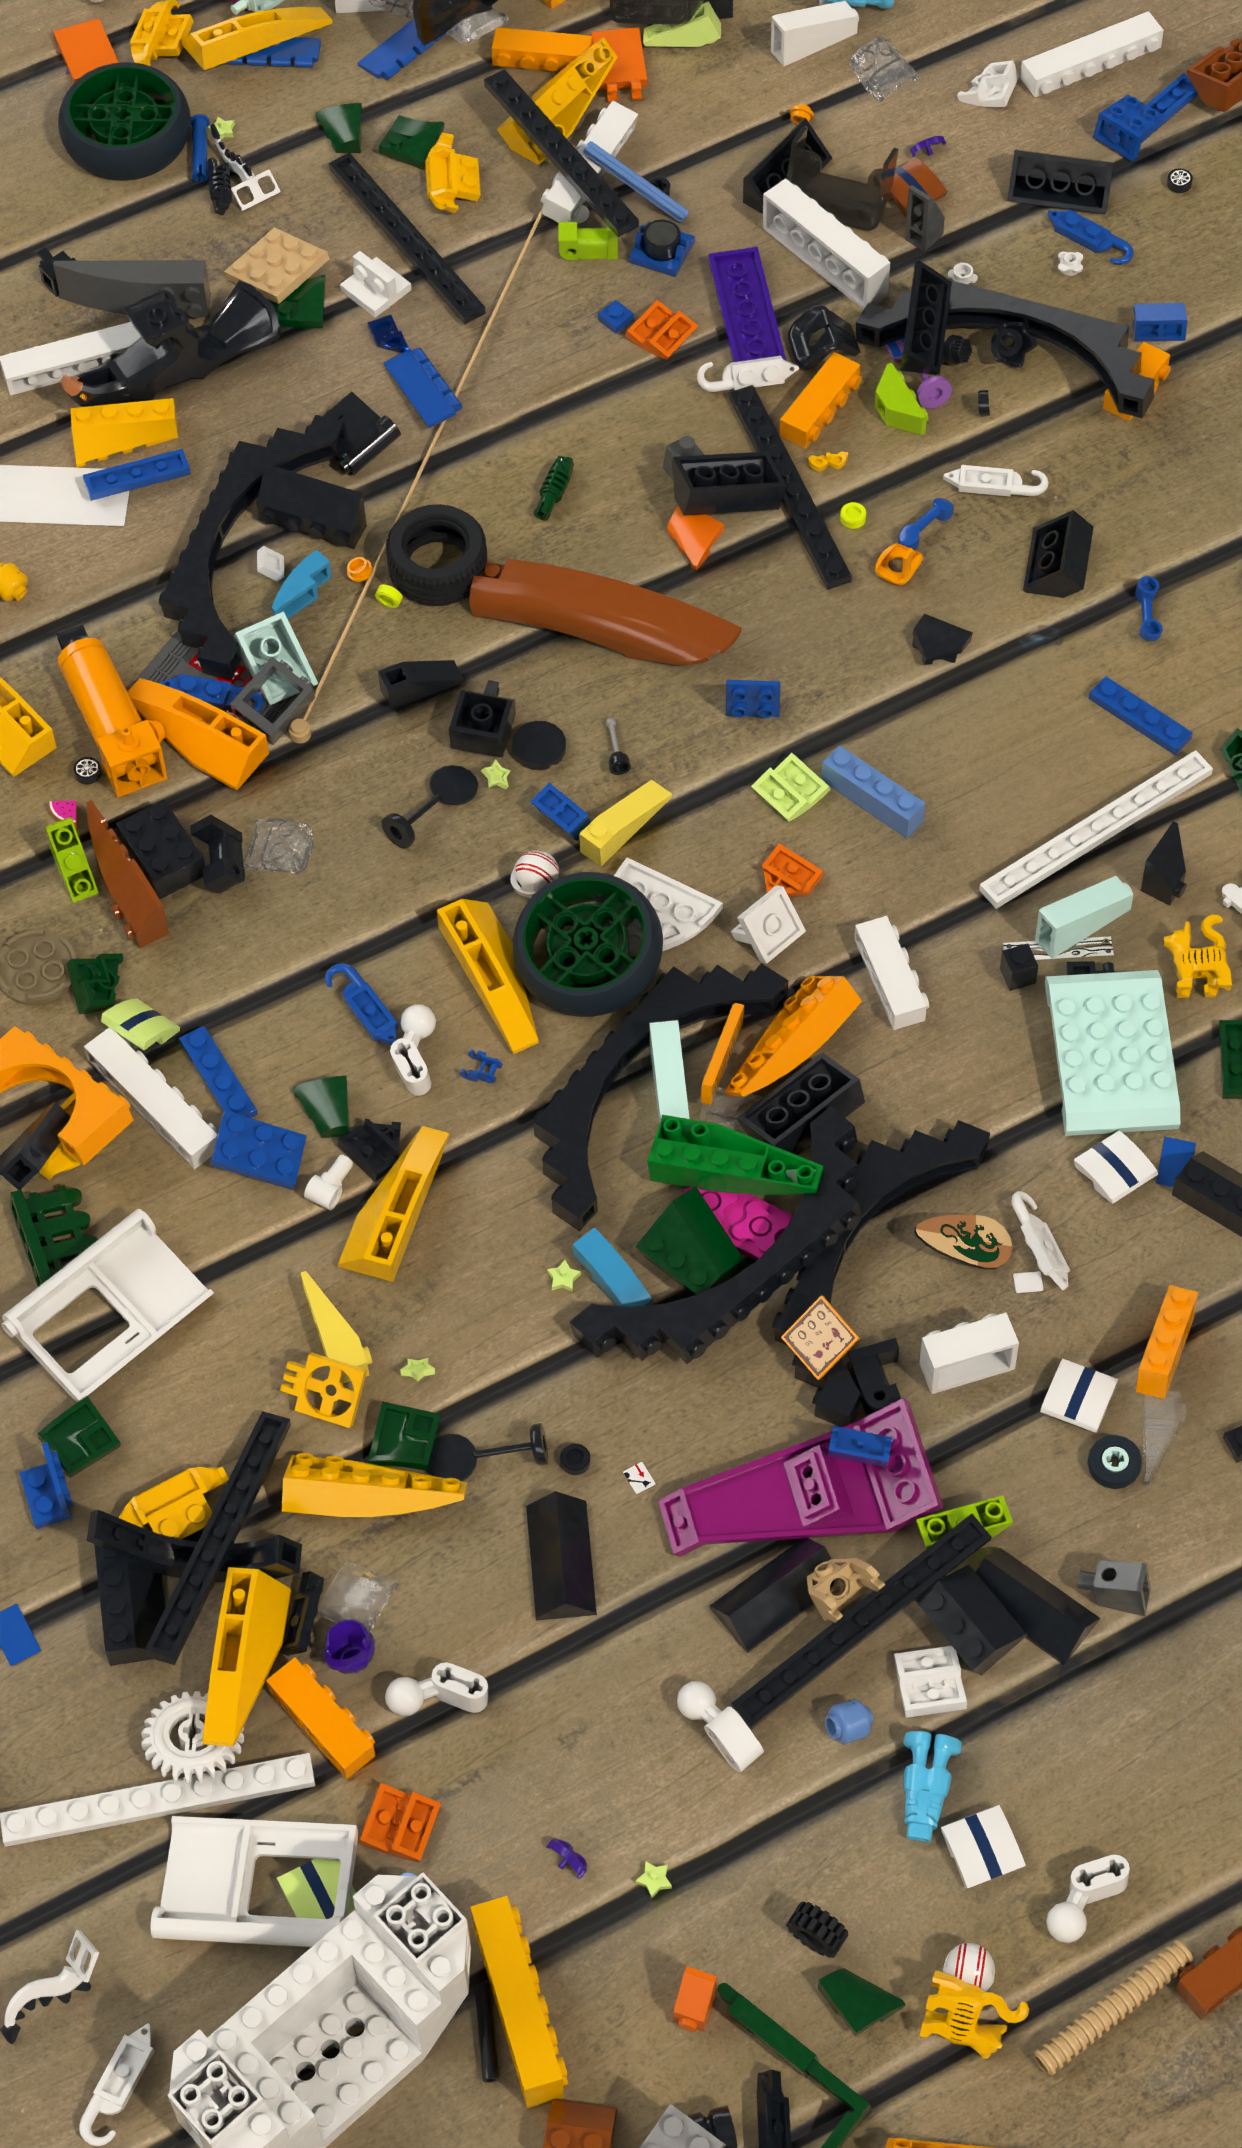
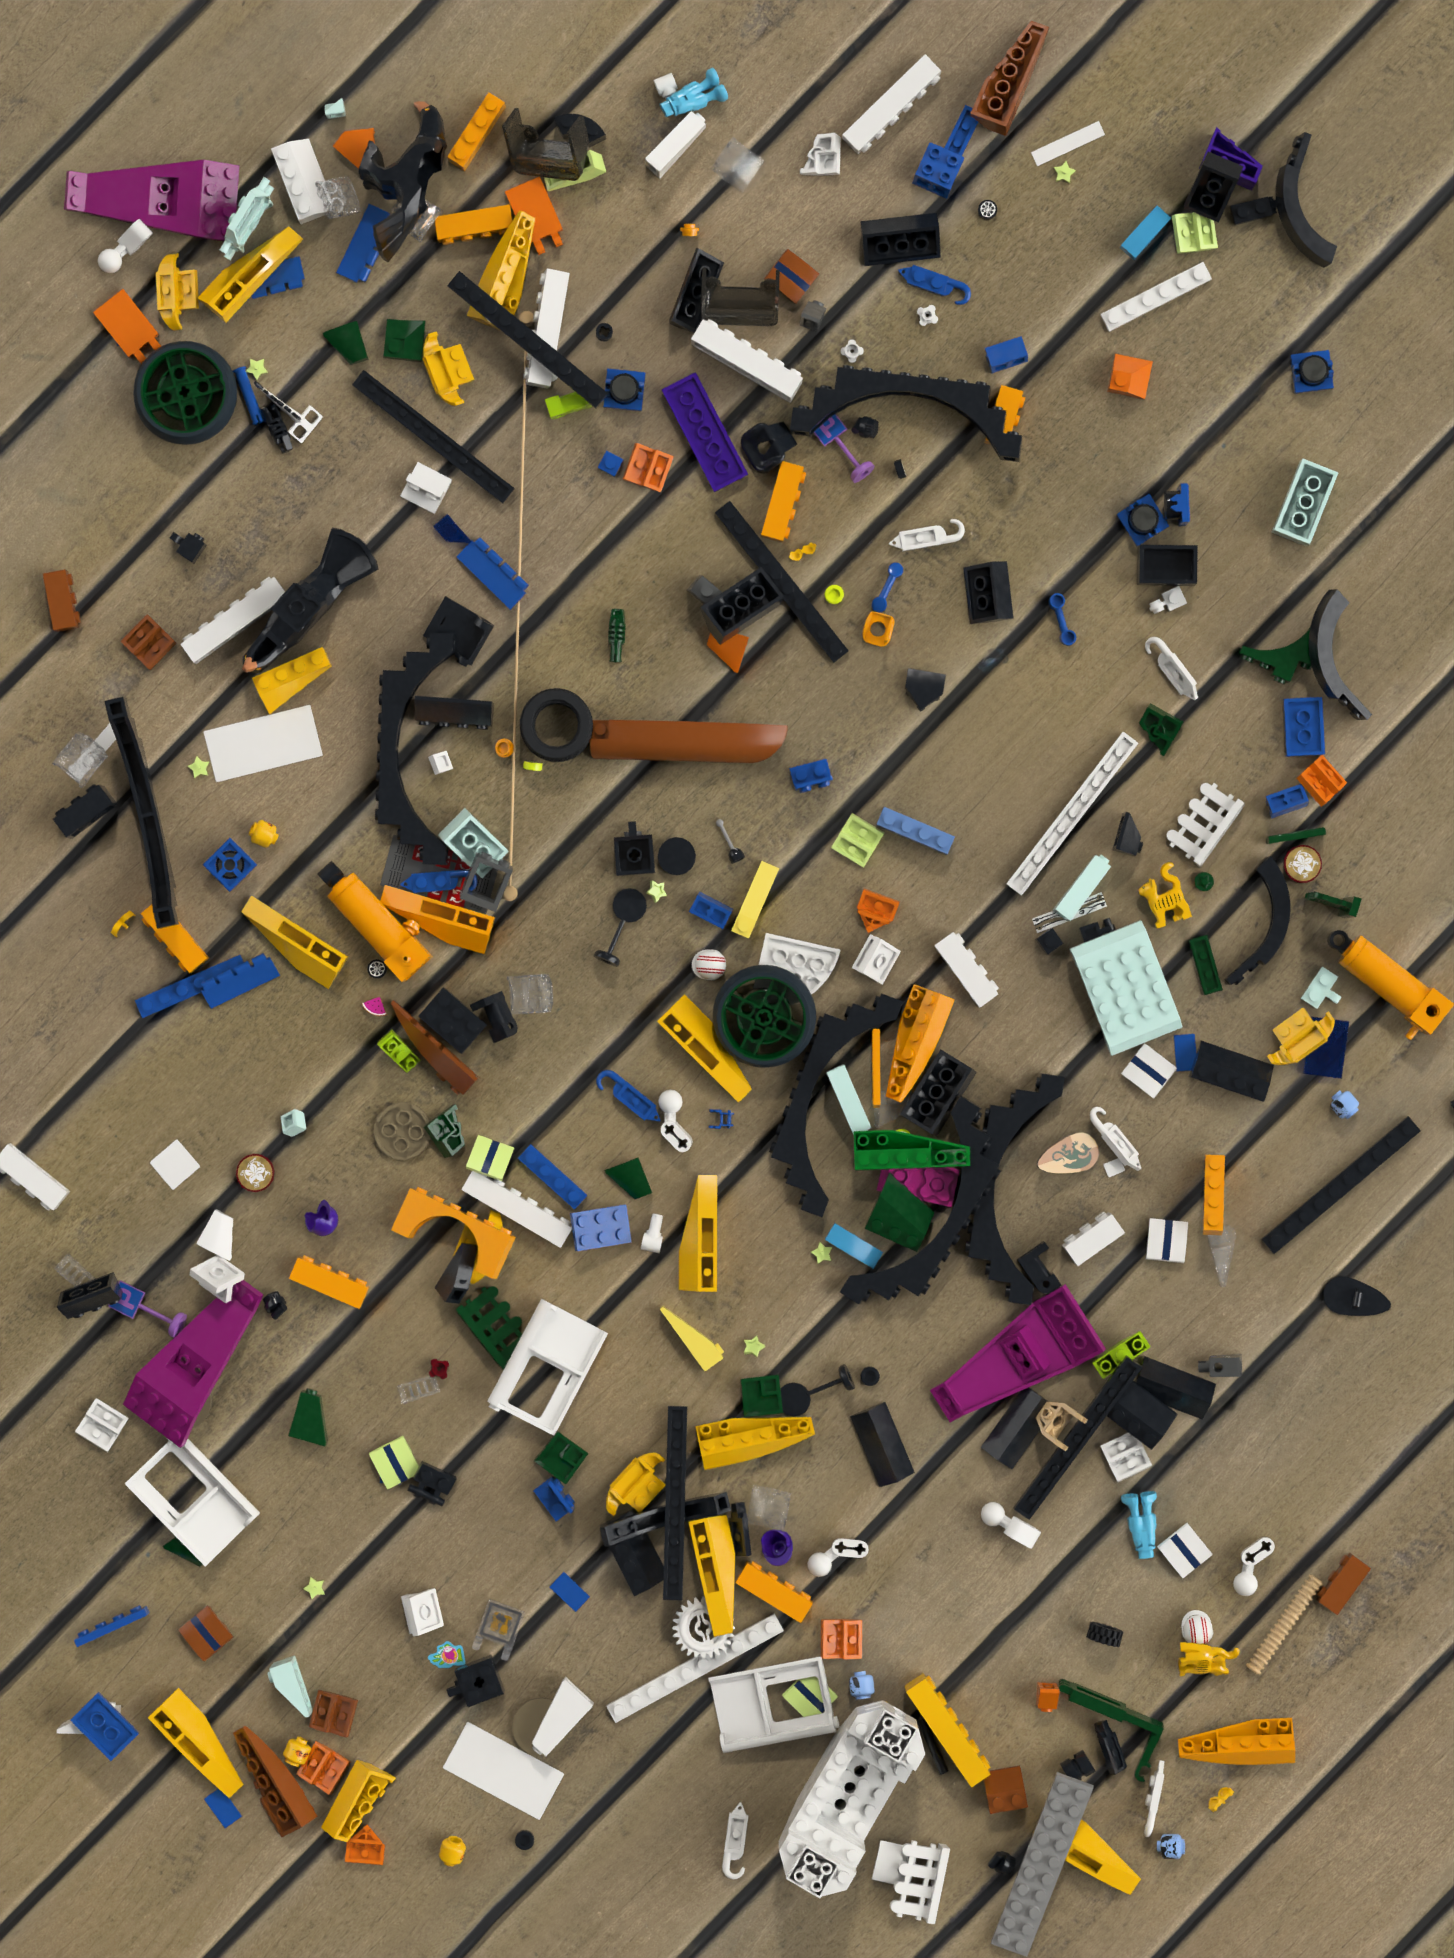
camera: 15 degrees left, 30 degrees up
(45, 1989) = (681, 1797): white piece -> none
(124, 282) = (260, 550): dark grey slope -> none
(136, 474) = (317, 713): blue plate -> none
(277, 264) = (347, 493): tan plate -> none
(302, 585) = (468, 776): dark azure slope -> none
(304, 305) = (376, 521): dark green plate -> none
(304, 1381) = (684, 1379): yellow piece -> none
(372, 1147) = (671, 1198): black slope -> none
(417, 679) = (580, 830): black slope -> none
(575, 1860) = (943, 1626): dark purple piece -> none
(635, 181) = (588, 339): medium blue axle -> none
(639, 1477) = (912, 1375): white sticker -> none
(654, 1879) = (1000, 1626): yellowish green piece -> none
(747, 373) = (724, 493): white plate -> none
(820, 1337) = (1000, 1262): piece -> none
(849, 1721) = (1086, 1498): medium blue head -> none
(858, 2000) = (1138, 1663): dark green slope -> none
(860, 1446) = (1045, 1326): blue hinge -> none
(898, 403) = (838, 486): lime slope -> none
(926, 144) = (785, 233): dark purple piece -> none
(926, 321) = (842, 419): black slope -> none
(1015, 353) = (905, 410): black piece -> none
(1112, 1476) = (1207, 1284): black bush -> none
(1140, 715) = (1077, 708): blue plate -> none

